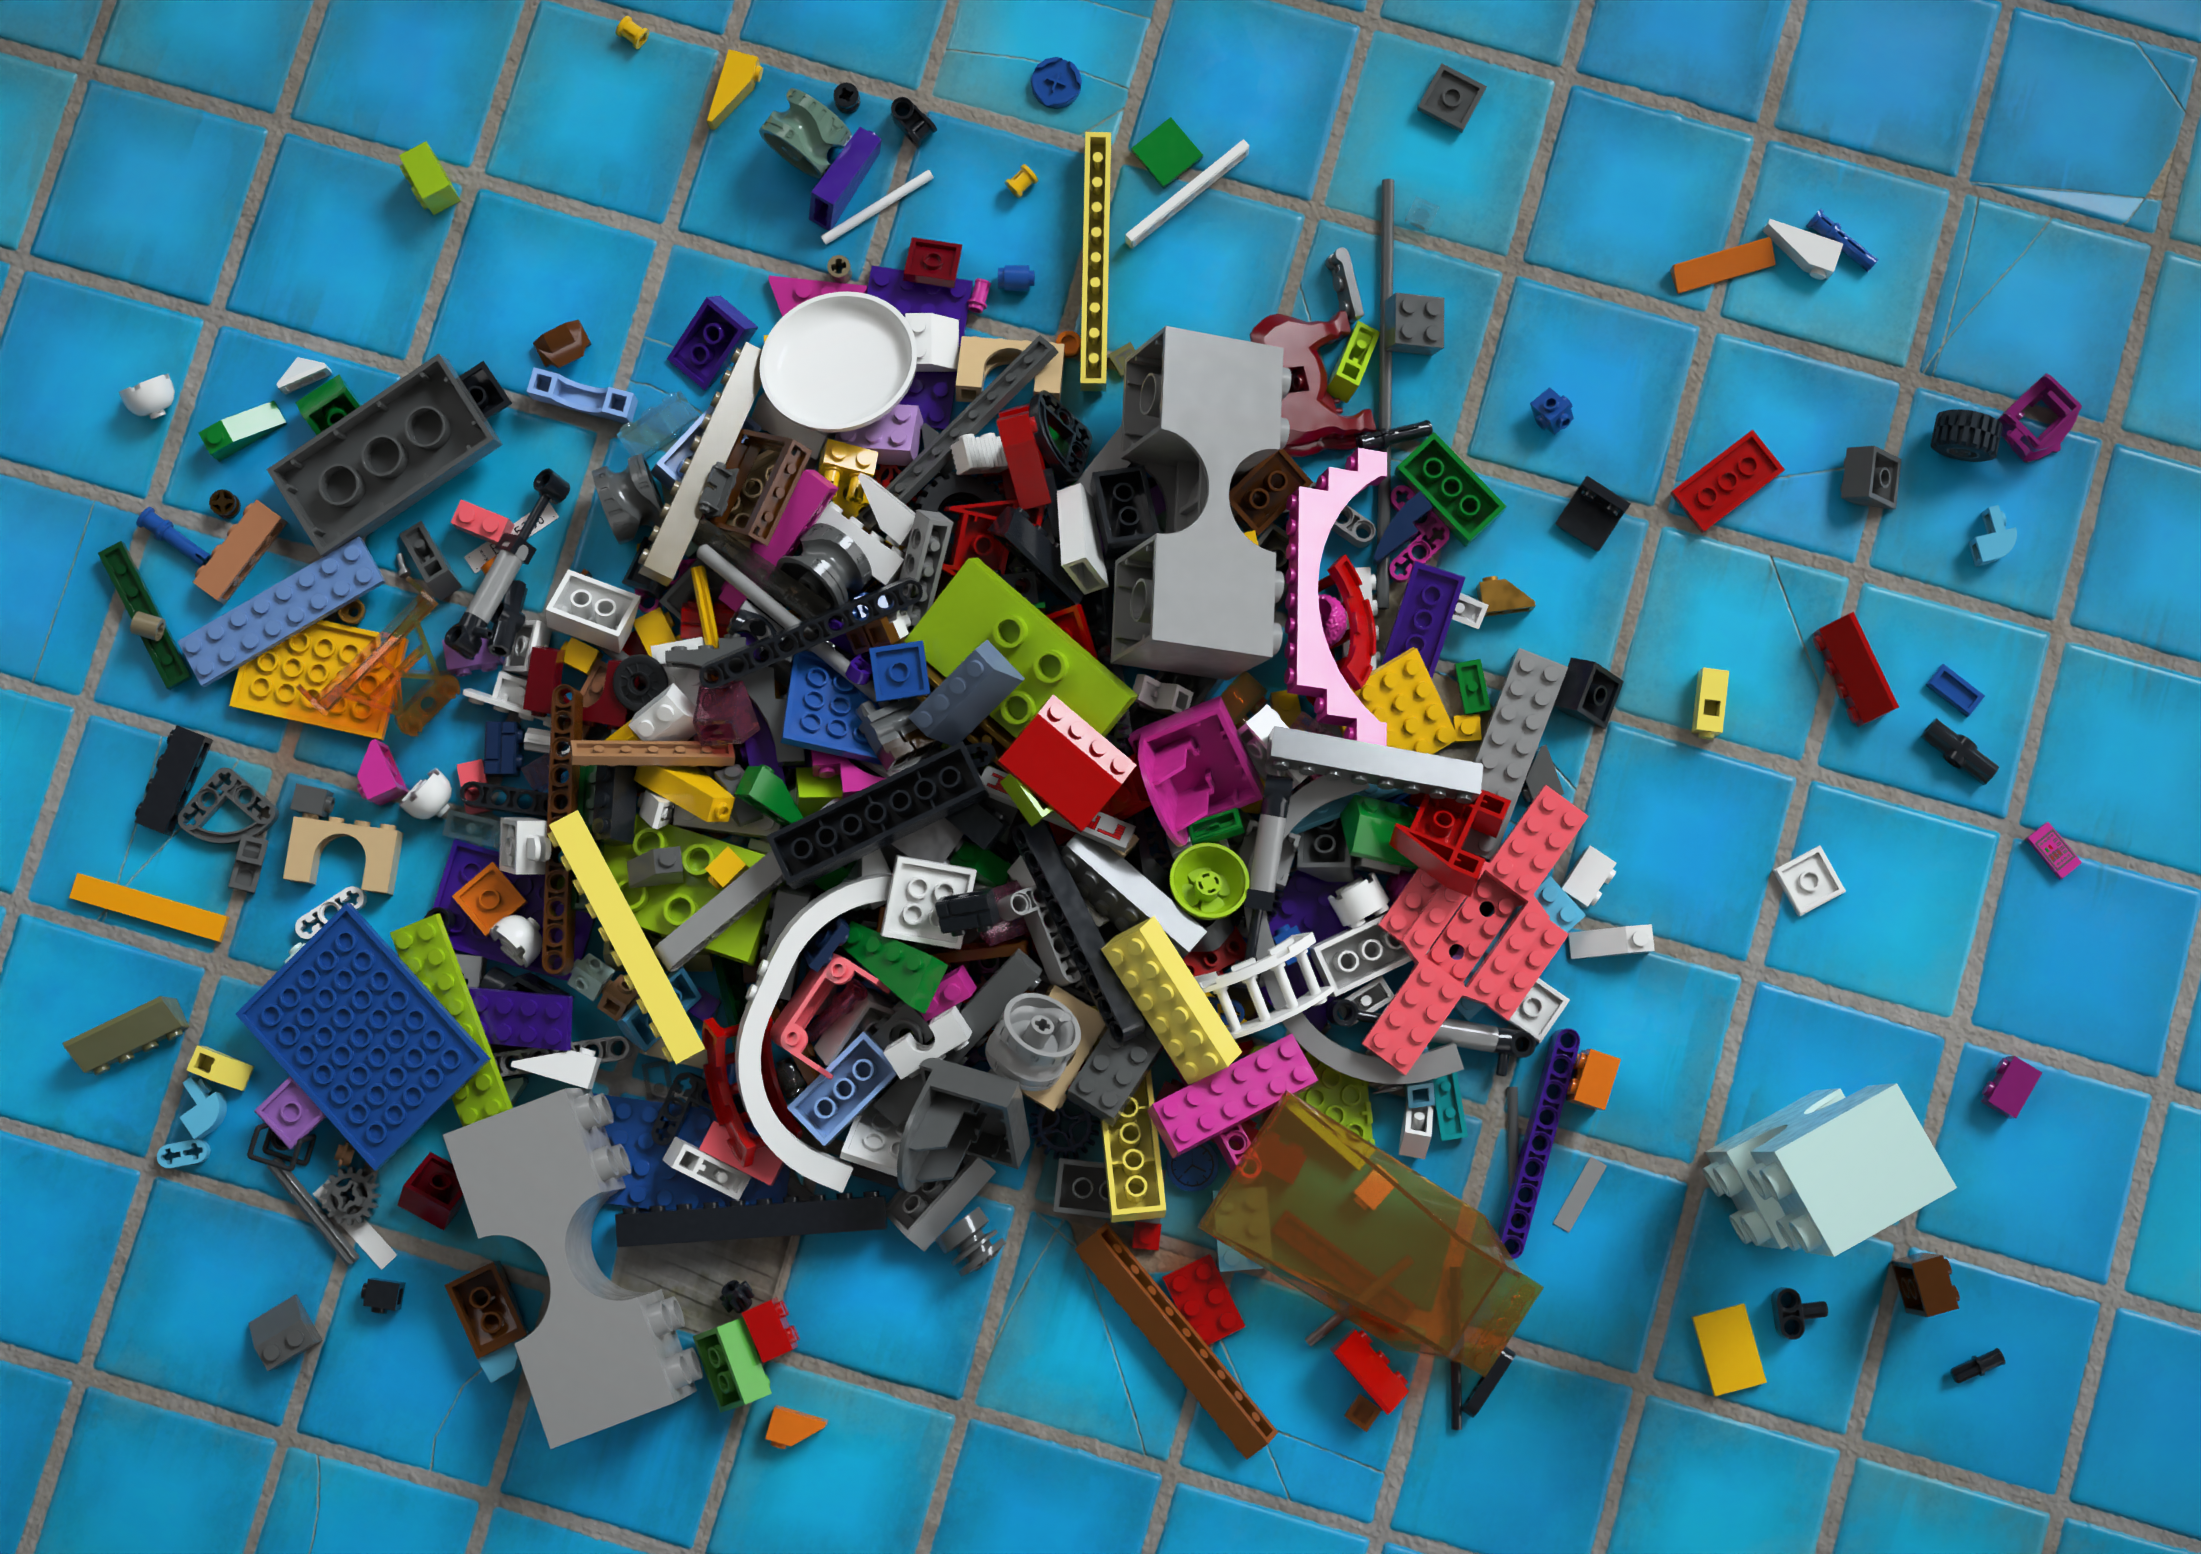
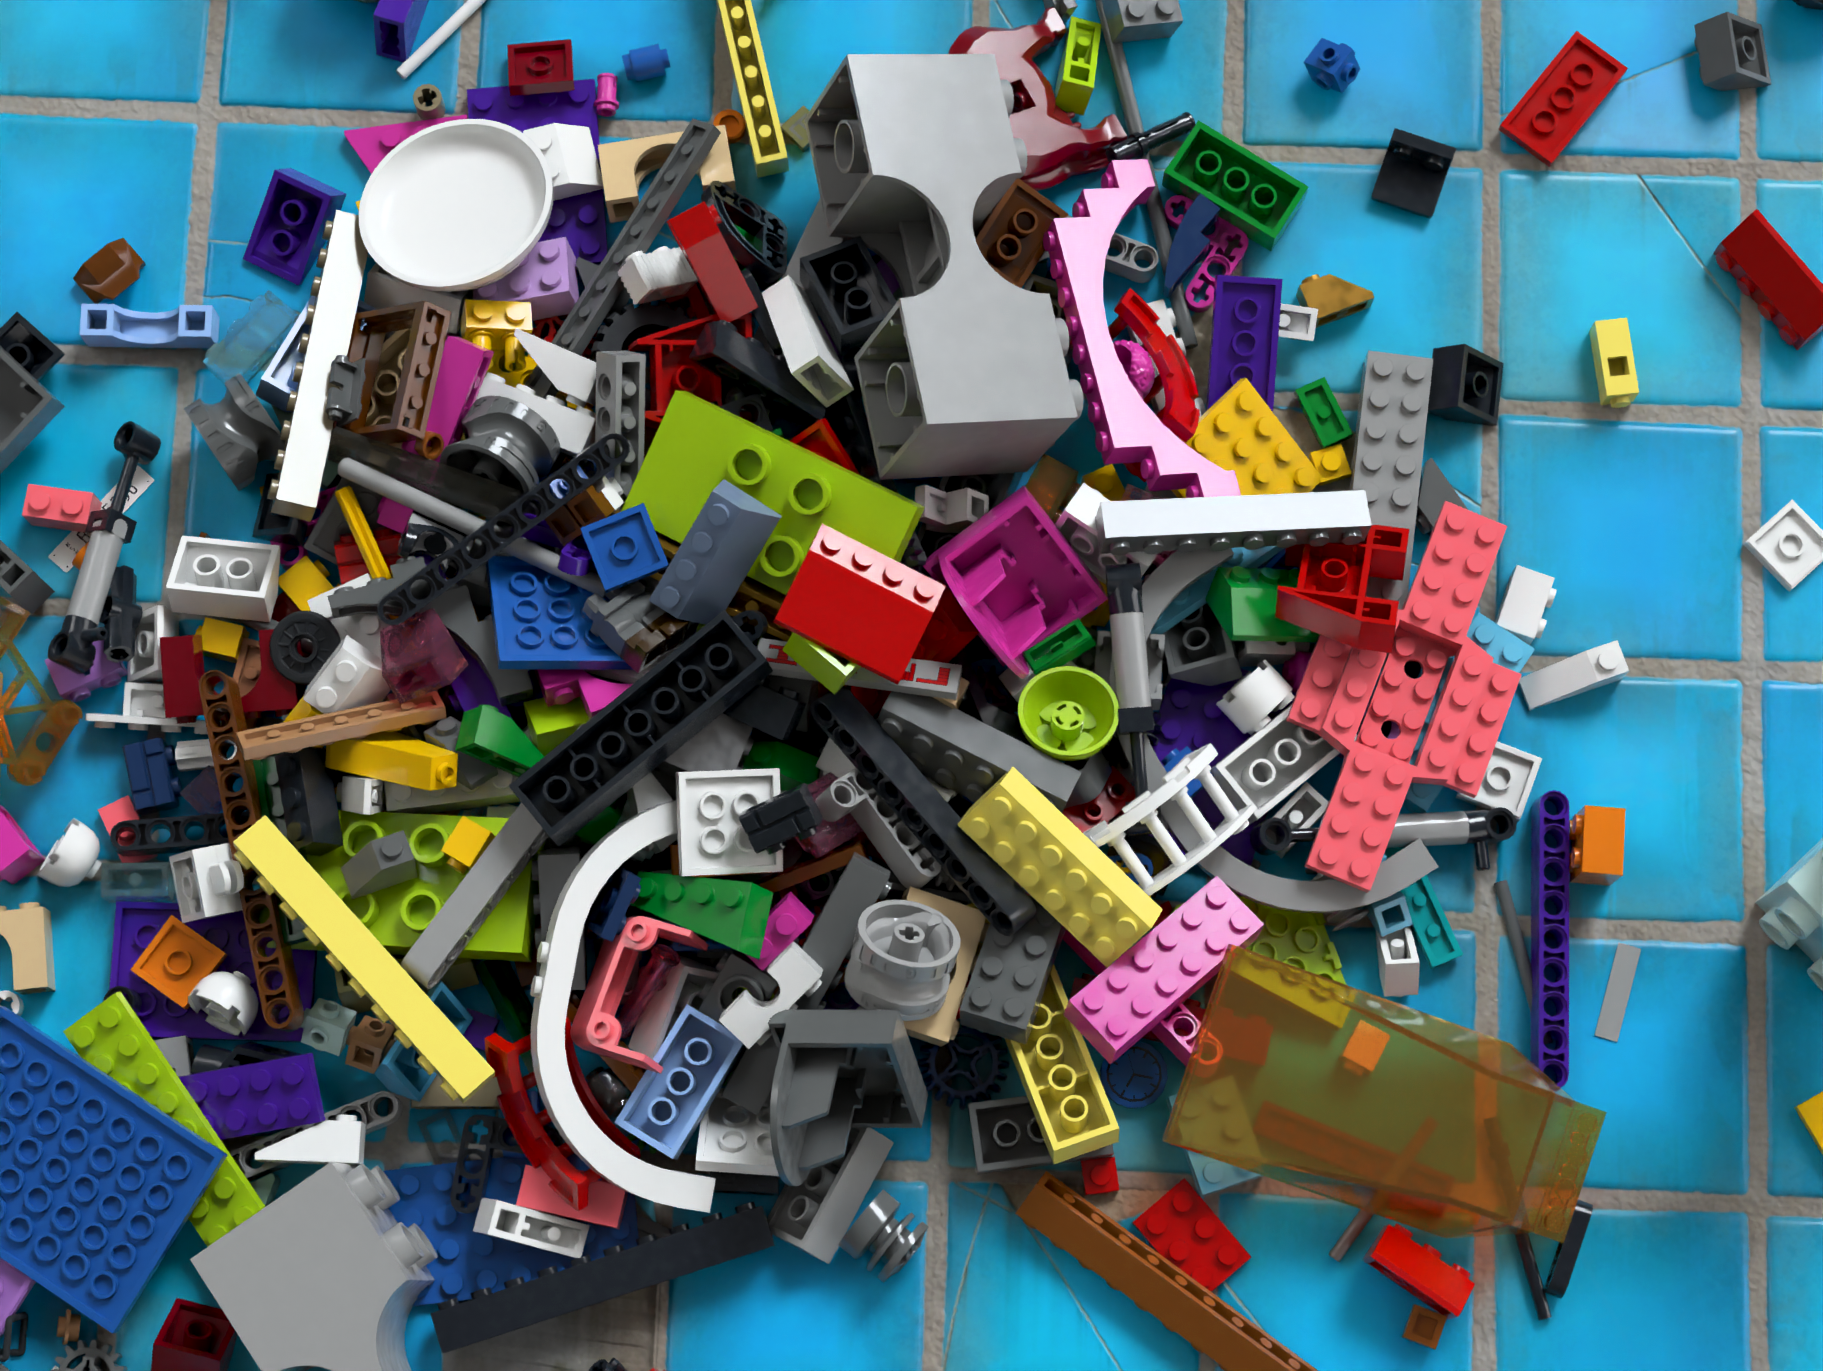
camera: 15 degrees left, 5 degrees down
(771, 555) = (432, 451): none -> dark orange hinge

